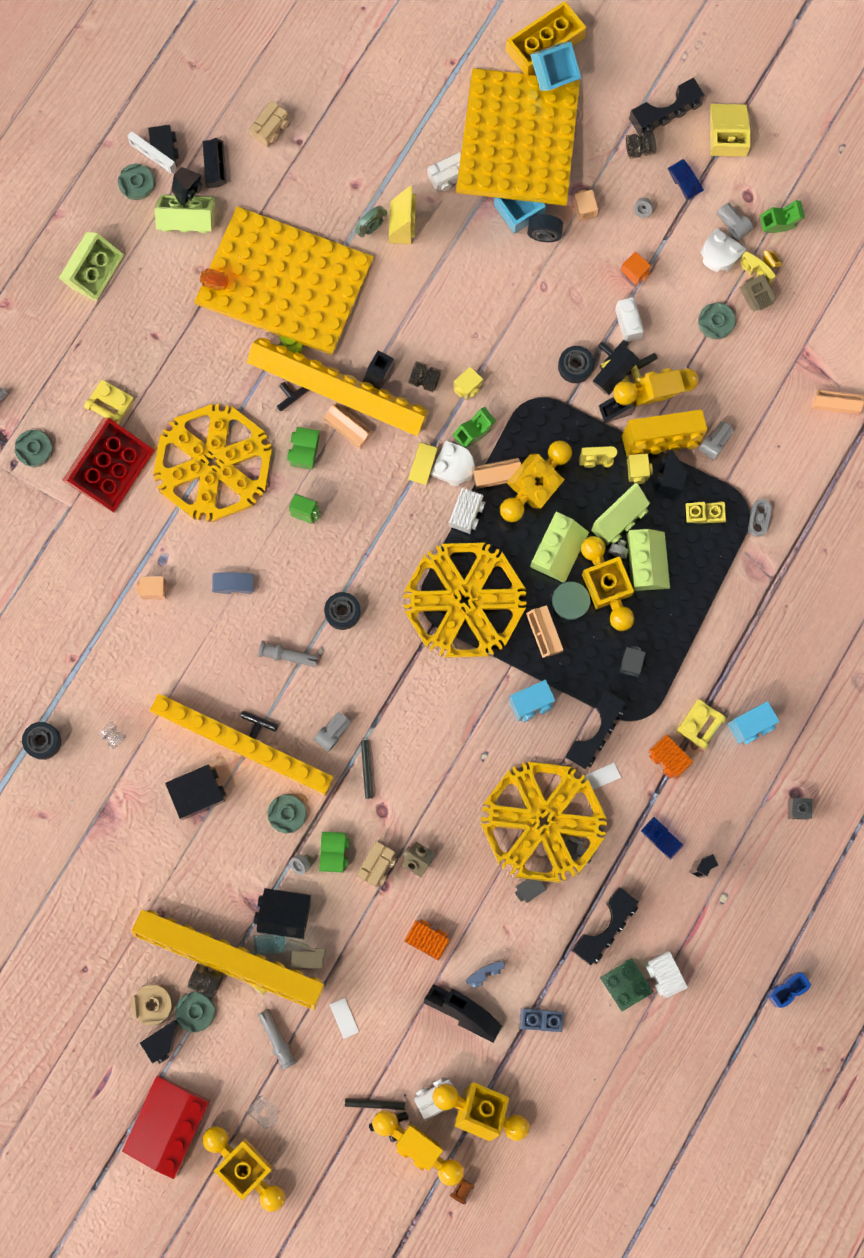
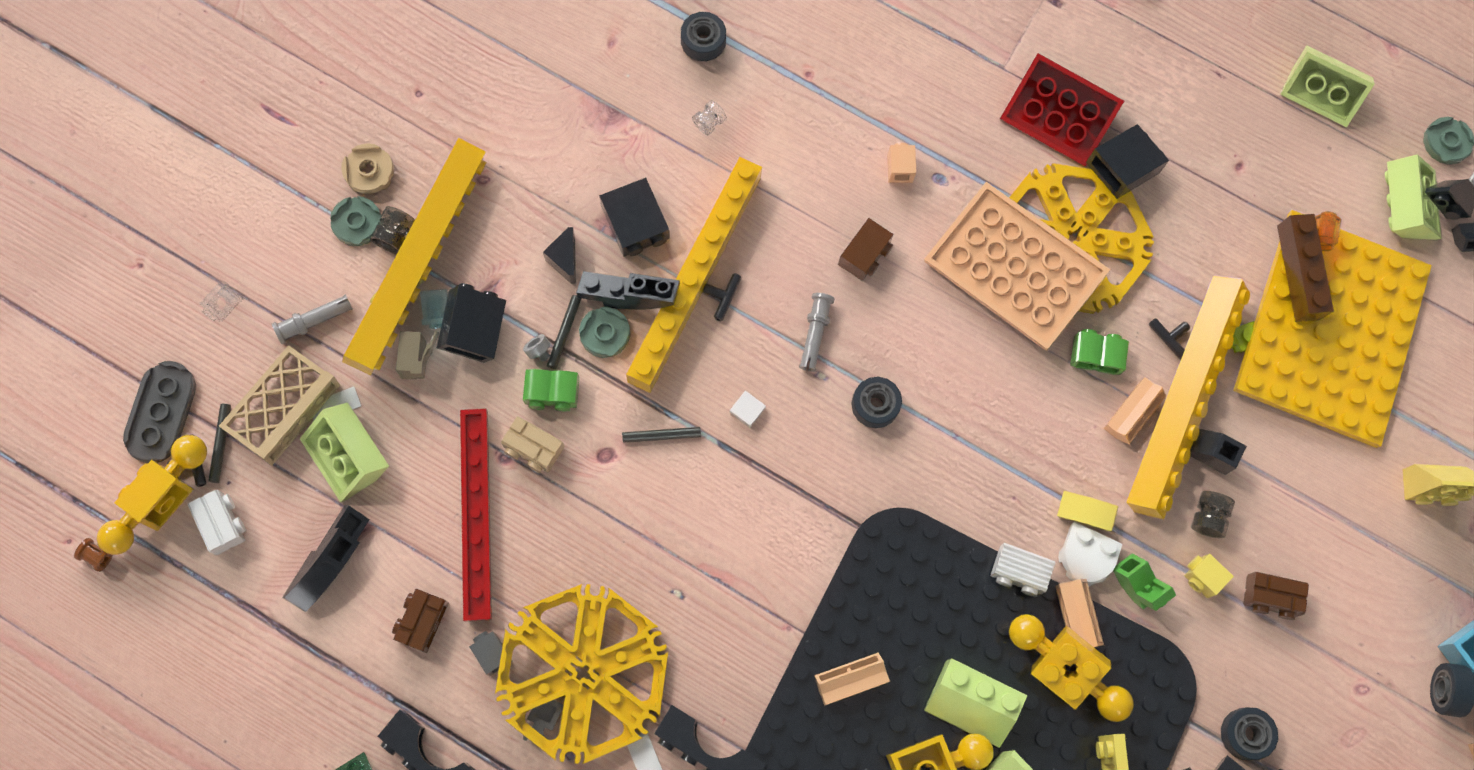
camera: 85 degrees right, 5 degrees down
(33, 448) = (1078, 23): sand green tile -> none
(112, 397) = (1153, 112): light yellow plate -> none
(153, 418) = (1127, 161): none -> black brick
(160, 1043) = (318, 178): black slope -> none
(166, 1127) = (214, 188): red slope -> none
(223, 616) = (865, 250): none -> reddish brown piece
(226, 846) = (561, 255): none -> black slope
(232, 582) = (911, 262): sand blue slope -> none
(237, 505) = (1016, 266): none -> light nougat plate
(243, 297) = (1305, 268): none -> reddish brown brick
(258, 794) = (630, 293): none -> black slope
(271, 1196) = (150, 276): yellow brick -> none
(286, 844) = (564, 332): none -> pearl dark grey bar
(304, 509) = (1014, 349): bright green brick -> none
(329, 735) = (706, 384): light grey piece -> none
(347, 705) = (747, 409): none -> white tile
(350, 1153) = (159, 411): none -> dark grey tile
(358, 1046) = (299, 414): none -> tan fence
(371, 221) = (1433, 439): sand green tile -> none
(382, 1007) = (343, 451): none -> yellowish green slope
(418, 859) = (536, 499): dark tan brick -> none
(426, 939) = (428, 511): orange brick -> none
(428, 904) = (475, 515): none -> red plate
(479, 976) = (374, 582): sand blue slope -> none
(480, 338) = (1276, 594): none -> reddish brown brick
(481, 1112) = (197, 594): yellow brick -> none
(483, 599) = (918, 578): yellow plate -> none
(507, 940) = (420, 620): none -> reddish brown brick
(531, 701) = (751, 657): medium azure piece -> none
(541, 1020) = (311, 667): sand blue slope -> none
(571, 600) = (898, 718): sand green tile -> none

